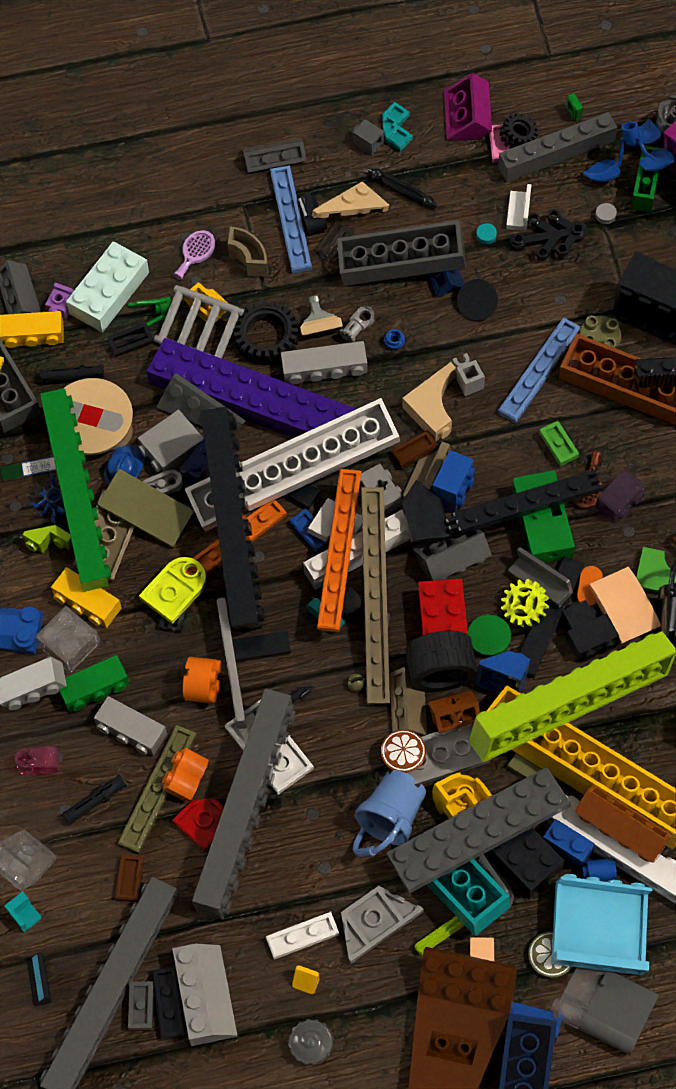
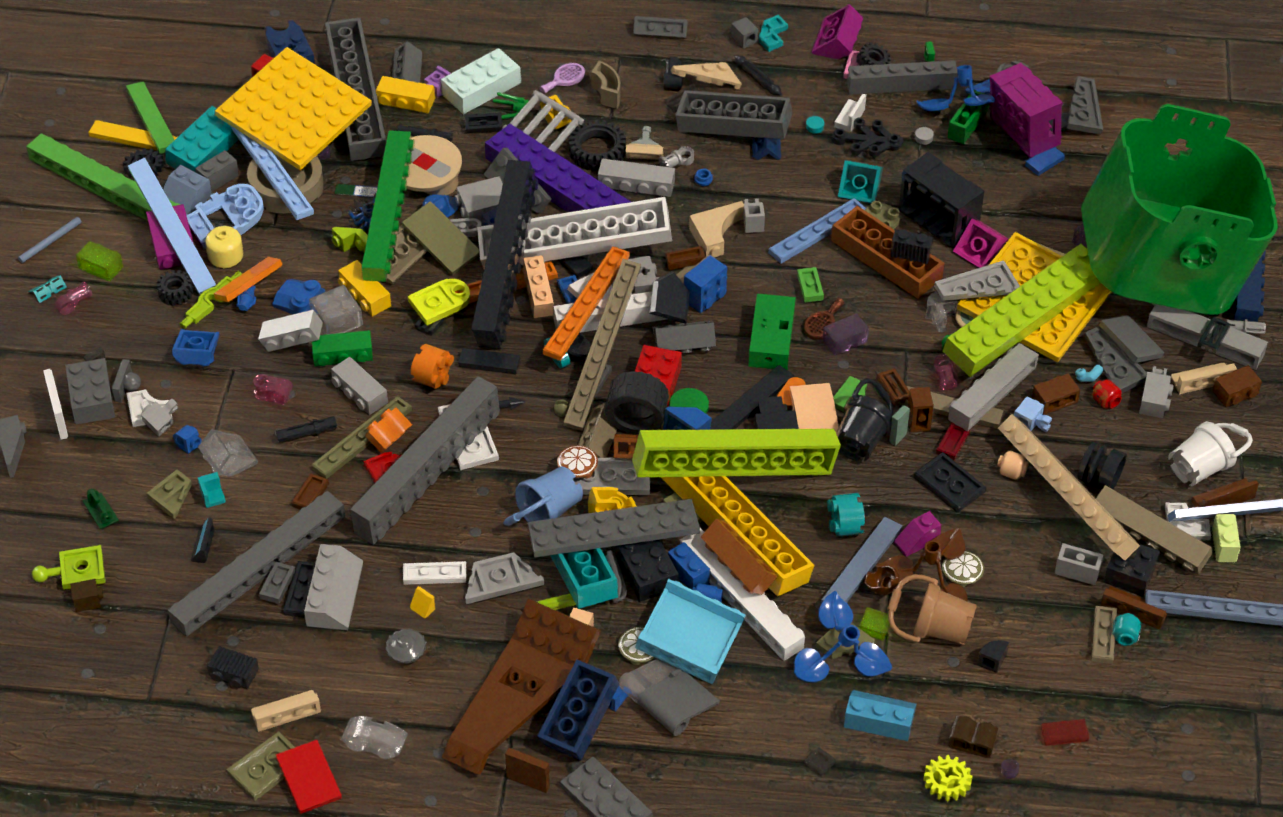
camera: 15 degrees right, 15 degrees down
(231, 663) = (462, 361): light grey tile -> none
(275, 539) = (538, 286): none -> light nougat brick
(291, 219) = (654, 75): medium blue tile -> none
(477, 299) = (785, 166): black piece -> none
(524, 502) = (758, 311): black hinge -> none
(527, 566) = (751, 372): dark grey panel -> none
(534, 603) = (729, 386): neon yellow gear -> none
(562, 294) = (860, 181): none -> teal slope

